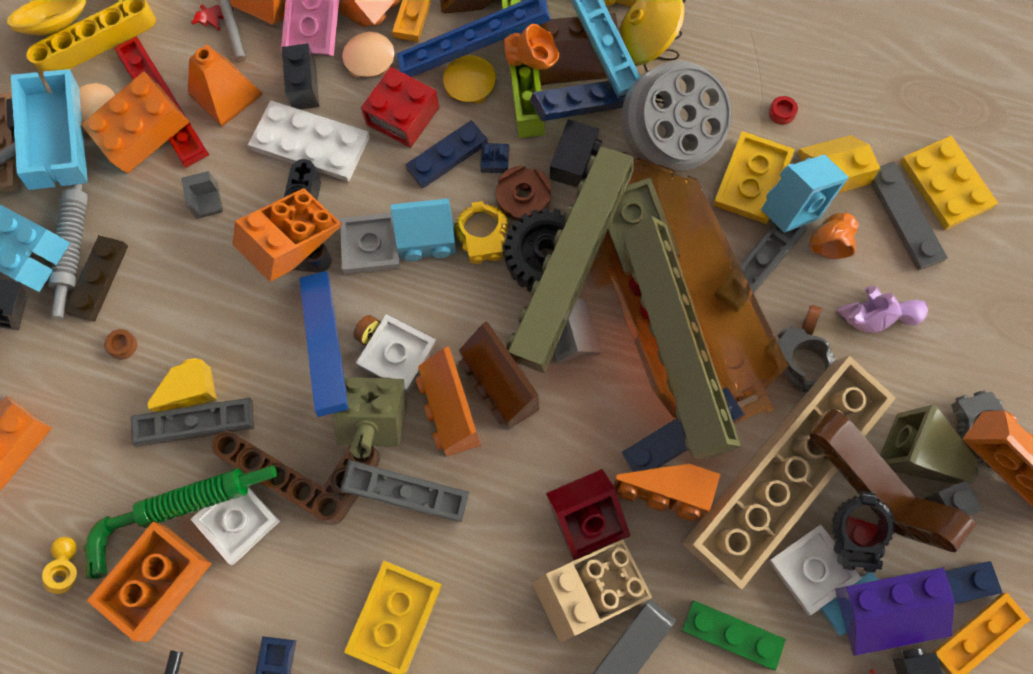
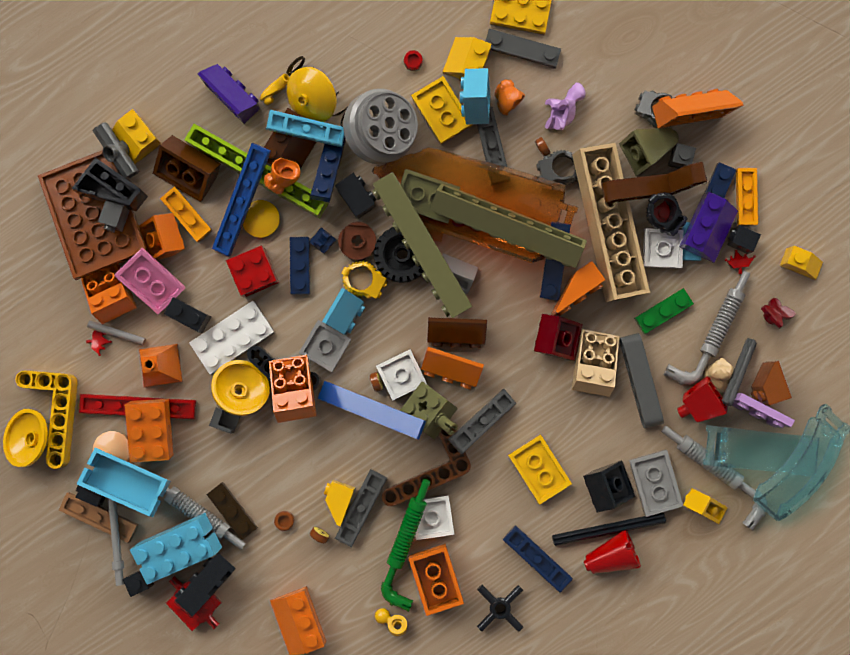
camera: 60 degrees left, 15 degrees up
(125, 395) = (319, 535): none -> dark orange tile
(248, 165) = (243, 377): none -> yellow dish
(368, 55) = (199, 265): light nougat dish -> none

